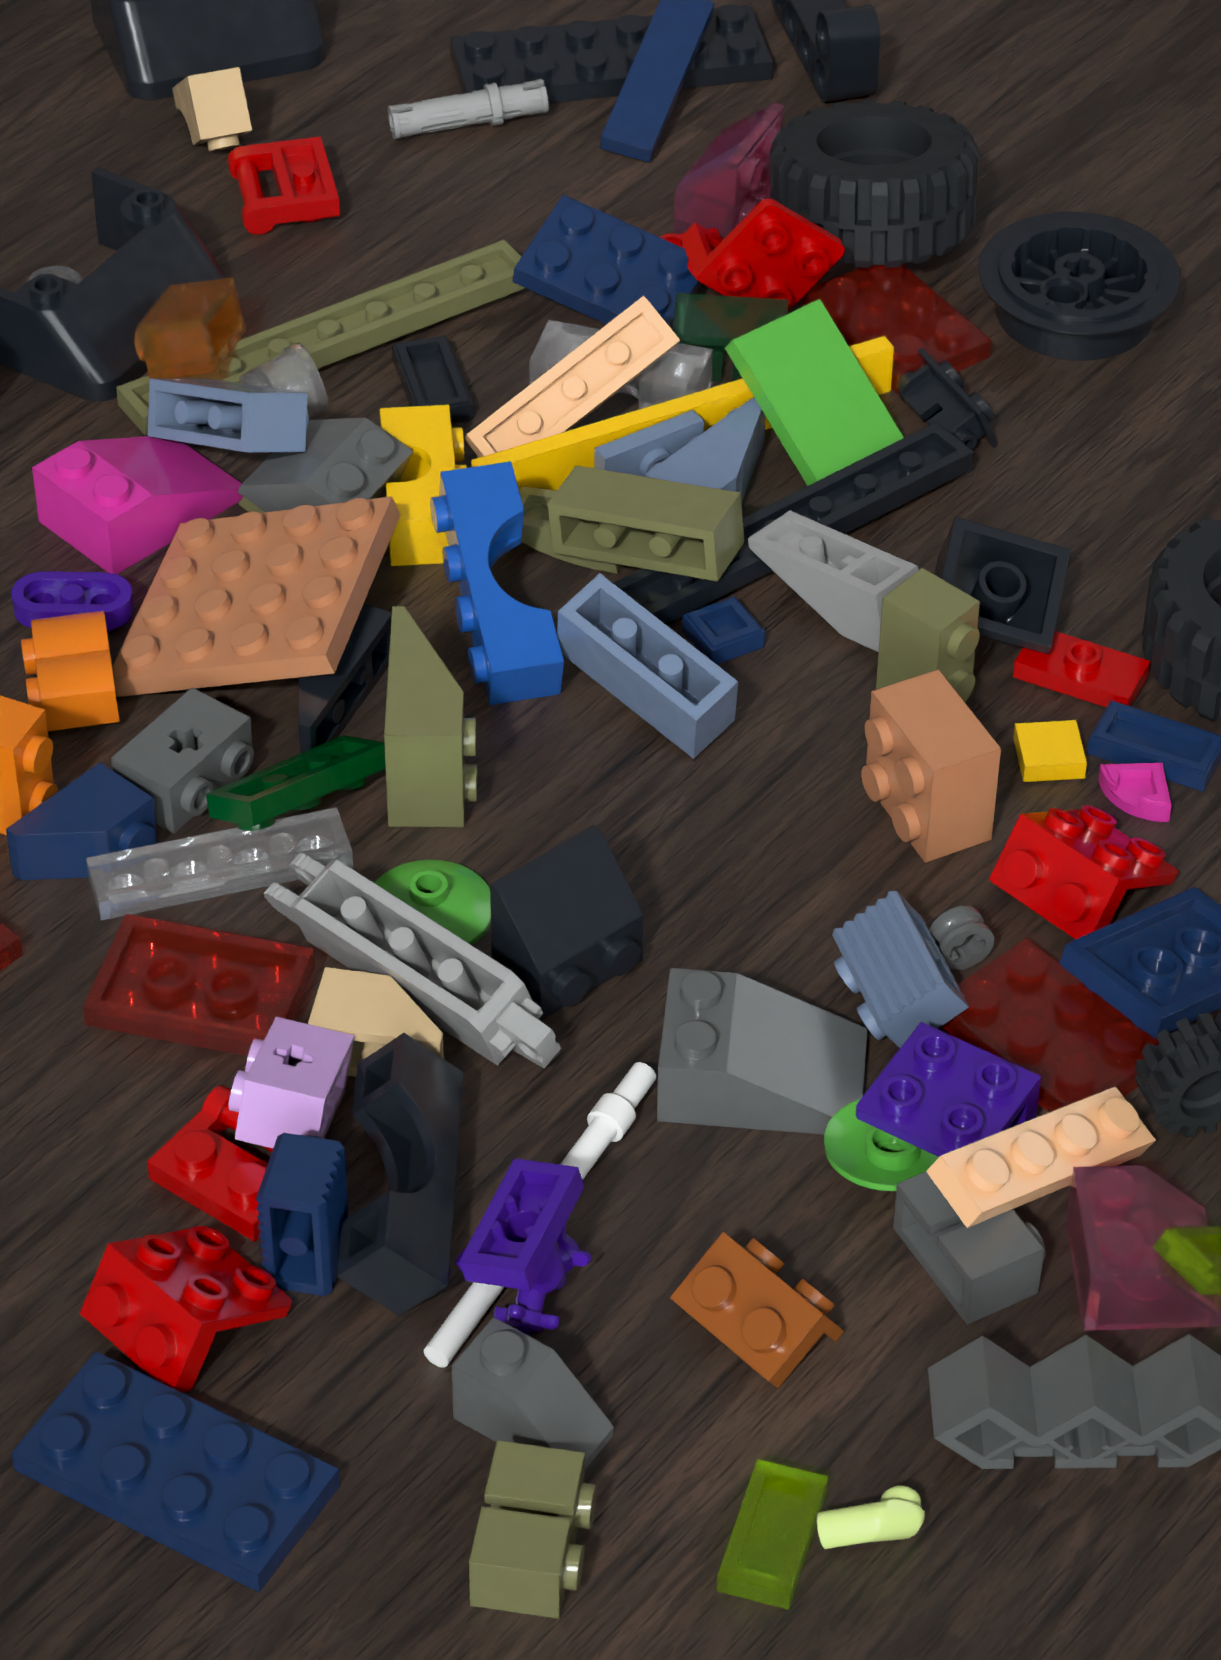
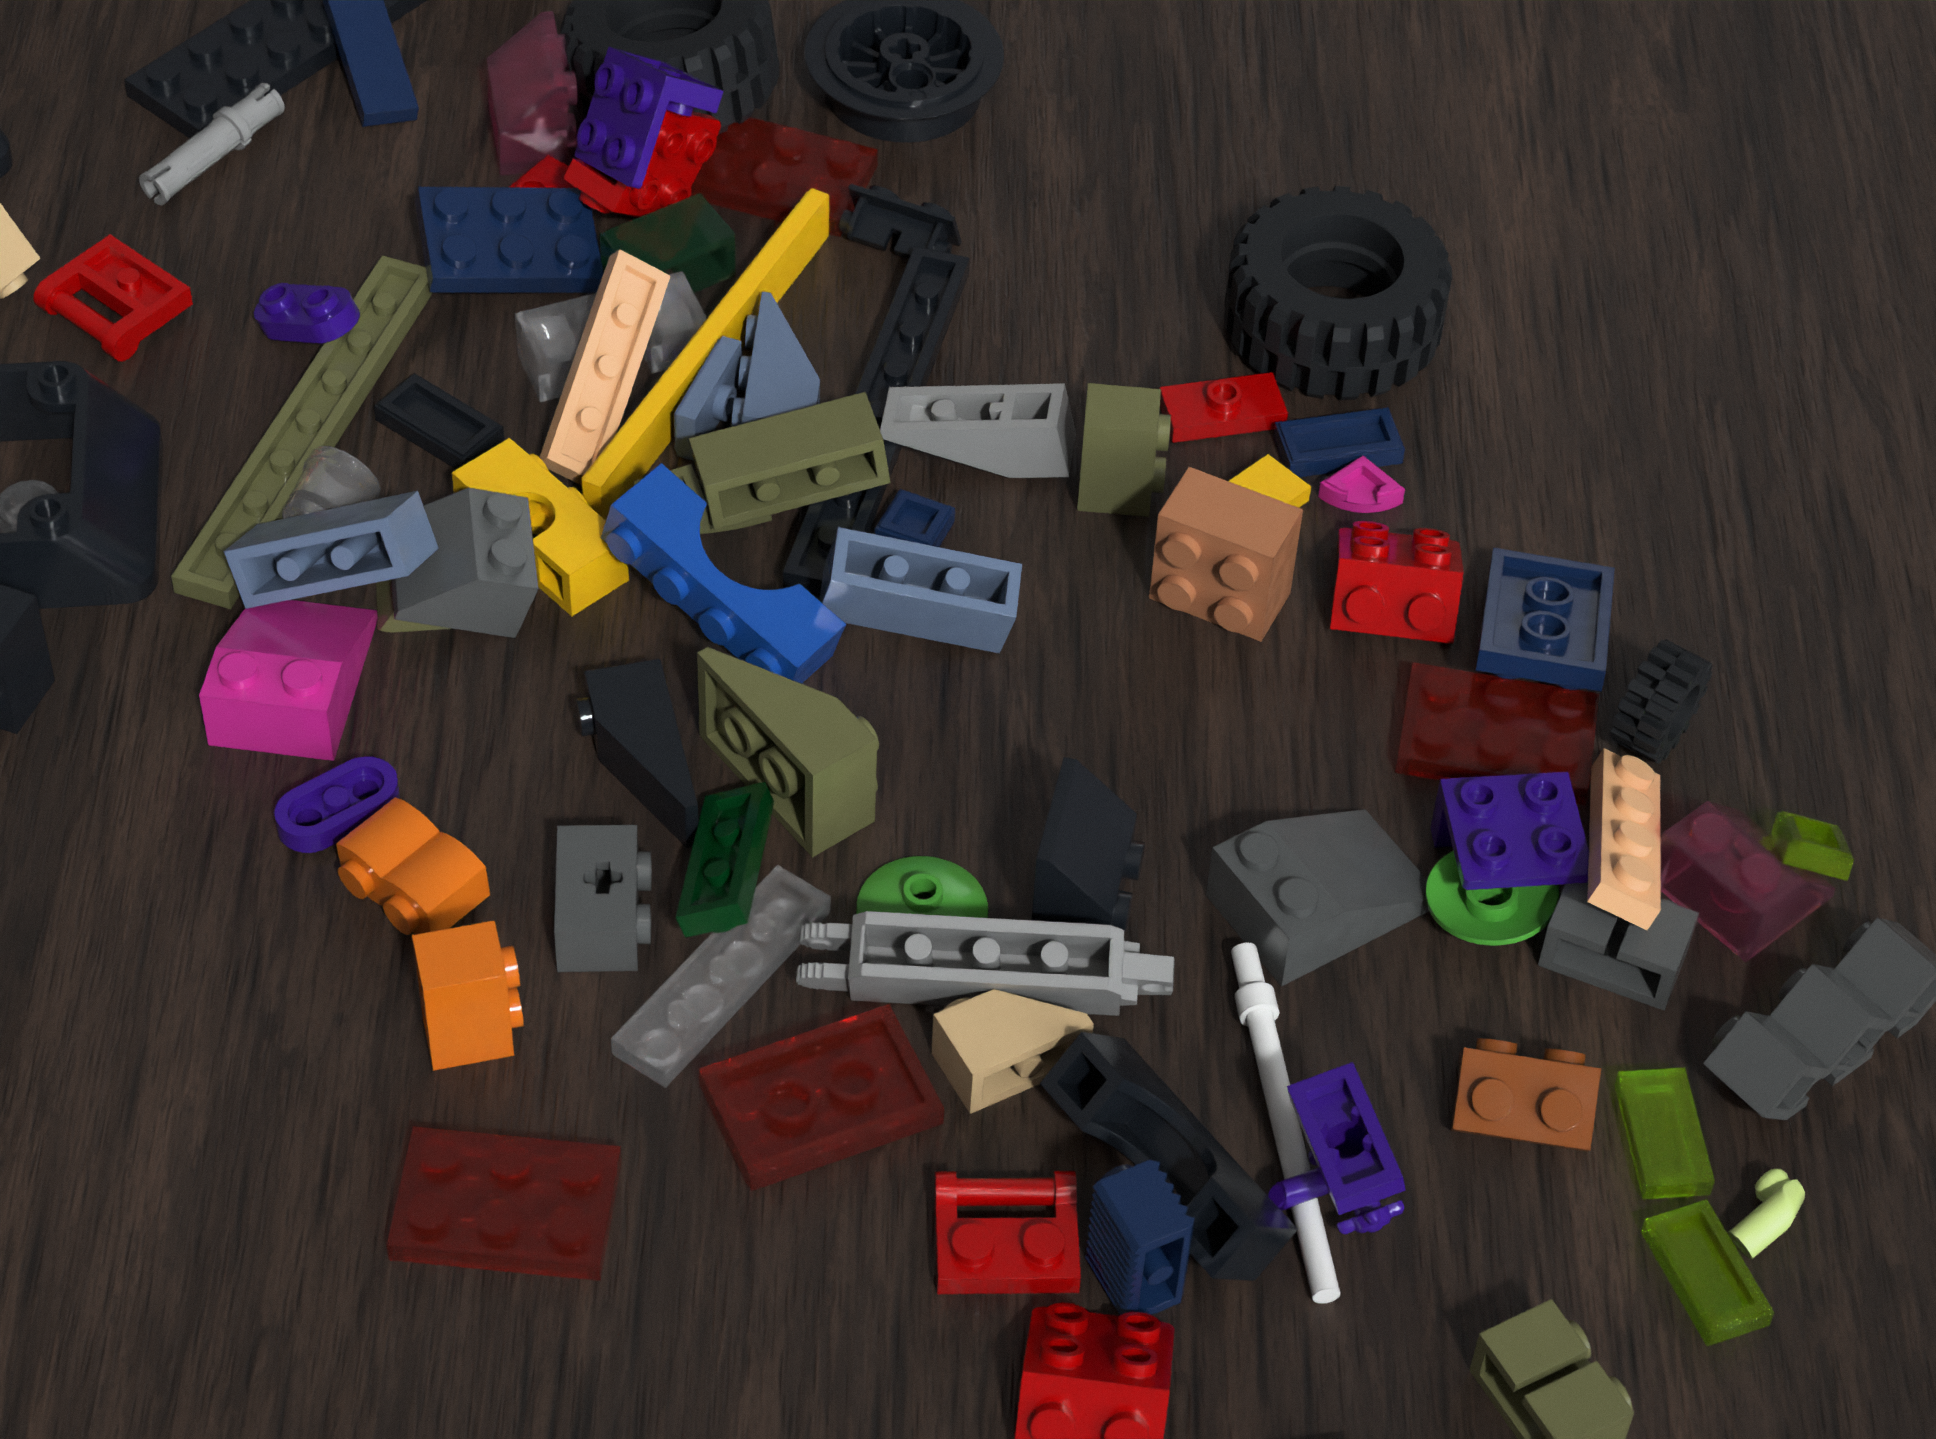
camera: 40 degrees left, 5 degrees up
(83, 820) = (580, 1008): dark blue slope -> none
(190, 329) = (199, 484): clear orange piece -> none
(255, 597) = (520, 709): nougat plate -> none
(291, 1082) = (1012, 1136): lavender brick -> none
(404, 253) = (306, 312): none -> dark purple plate
(525, 1394) = (1441, 1285): dark grey slope -> none
(791, 182) = (630, 109): none -> dark purple bracket
(813, 392) = (811, 271): bright green tile -> none
(851, 1409) = (1664, 1133): none -> clear neon green tile
(896, 970) = (1362, 747): sand blue brick -> none
(962, 937) = (1367, 690): dark grey bush -> none
(1011, 577) = (1115, 350): black slope -> none

